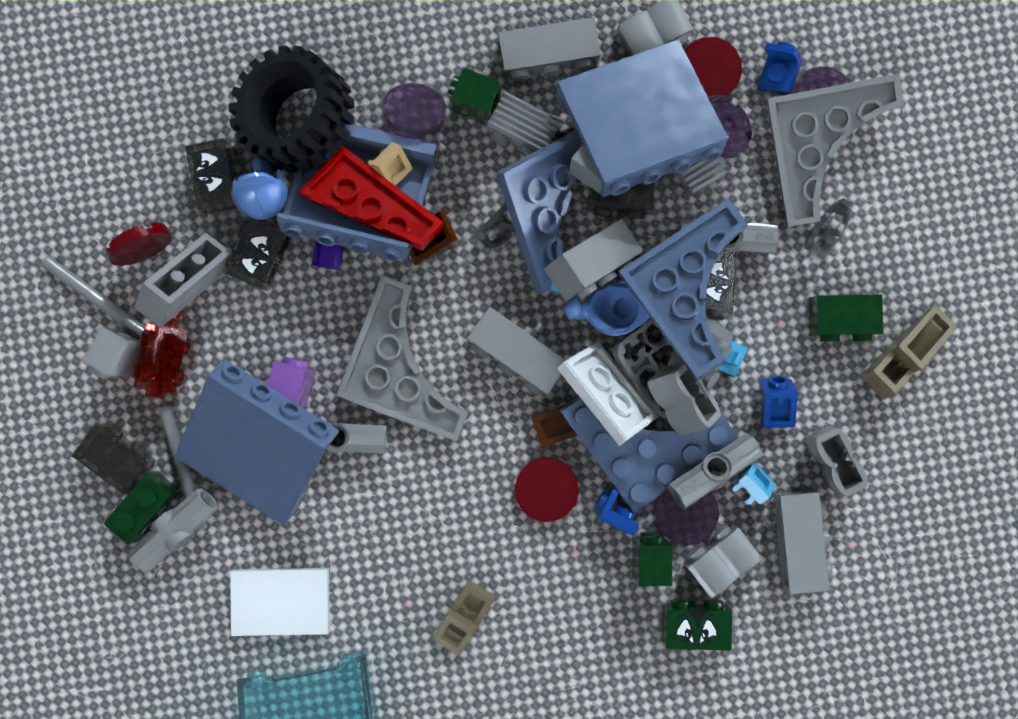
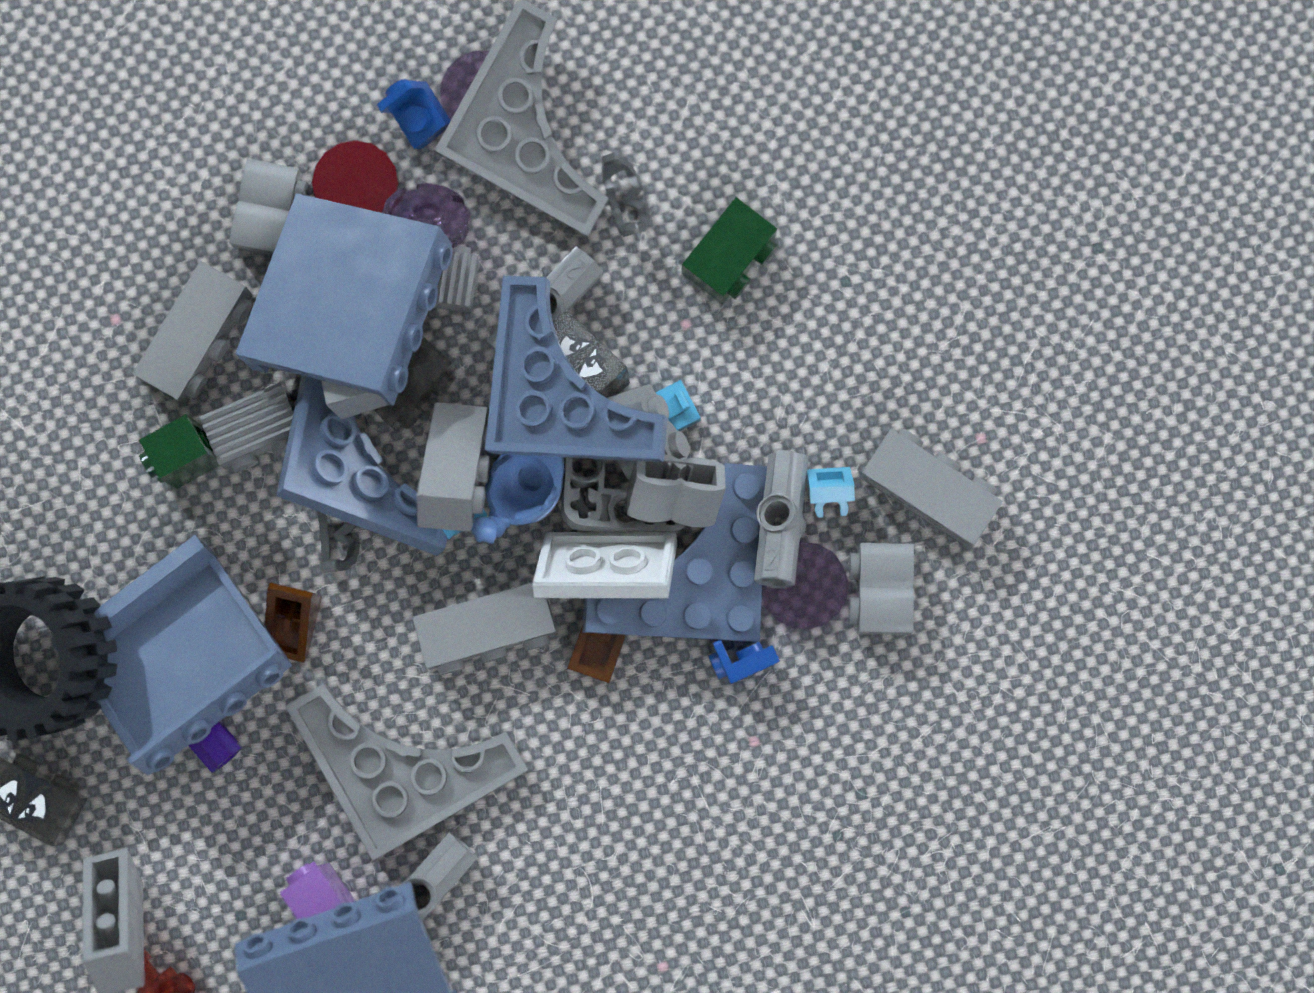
camera: 50 degrees left, 5 degrees down
(138, 244) = (35, 941): dark red tile -> none
(257, 253) = (151, 820): clear smoke brick -> none
(260, 193) = (90, 762): medium blue piece -> none
(367, 197) = (192, 651): red wing -> none
(391, 163) = (177, 601): tan tile -> none
(413, 110) = (139, 529): clear purple tile -> none
(463, 617) = (724, 917): dark tan slope -> none
(546, 489) = (658, 715): dark red tile -> none
(652, 560) = (820, 661): dark green brick -> none
(697, 626) = (932, 671): dark green brick -> none
(778, 402) = (764, 394): blue bracket -> none
(839, 469) = (886, 385): light grey brick -> none
(909, 352) = (822, 216): dark tan slope -> none

